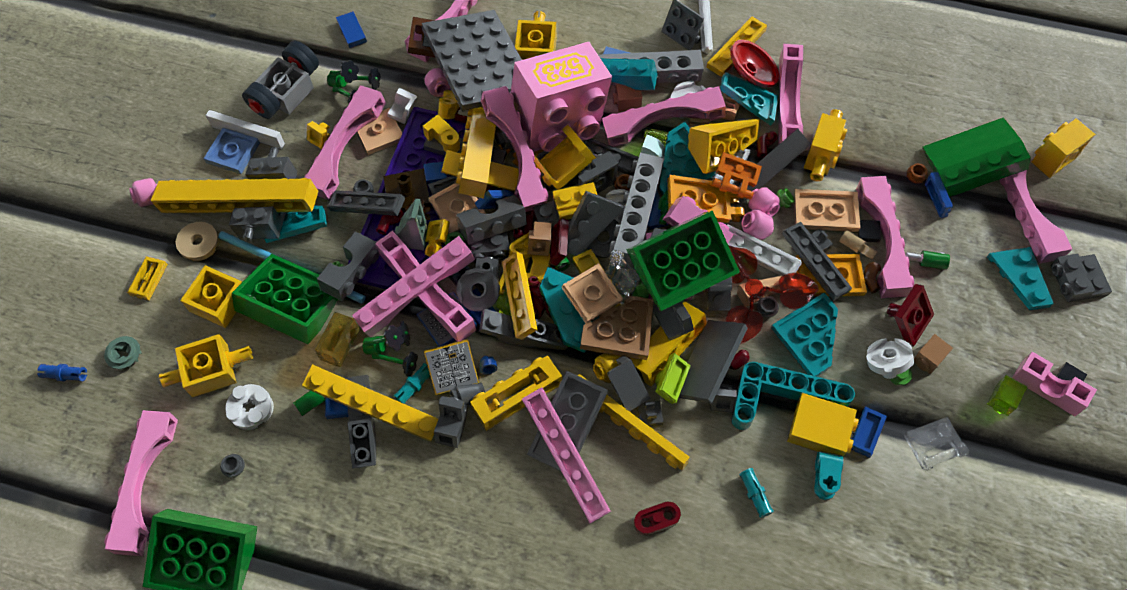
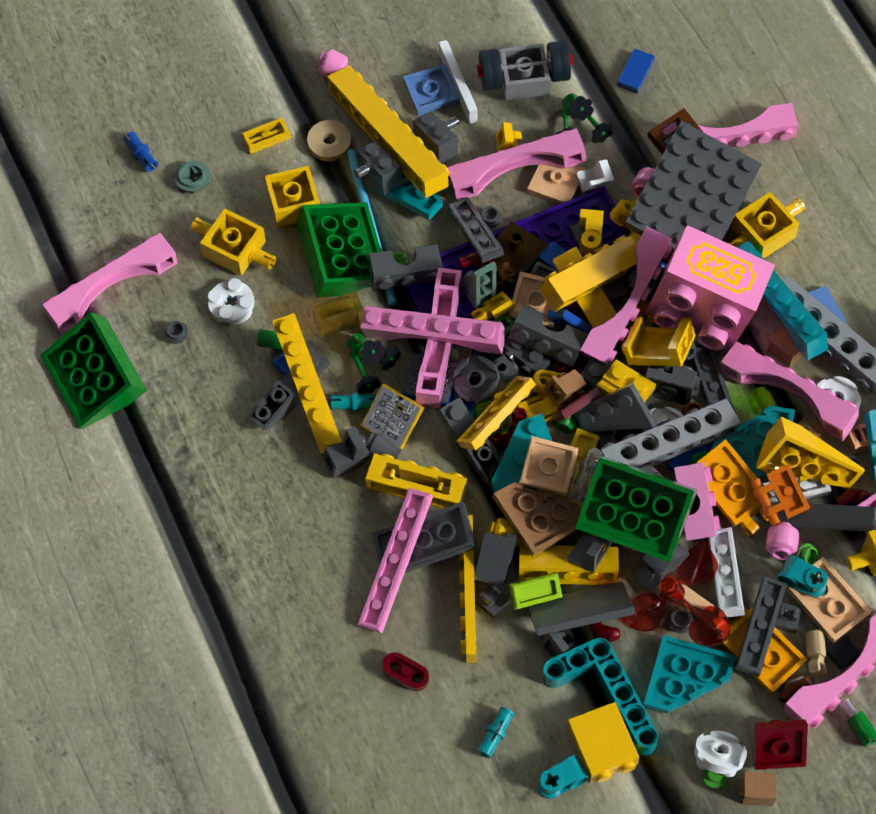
camera: 50 degrees right, 0 degrees up
(487, 365) = (420, 442): hinge -> none
(653, 147) = (745, 406): light aqua brick -> none
(757, 224) = (753, 552): bright pink head -> none
(804, 207) = (801, 575): none -> teal piece
(867, 431) = (634, 785): blue tile -> none

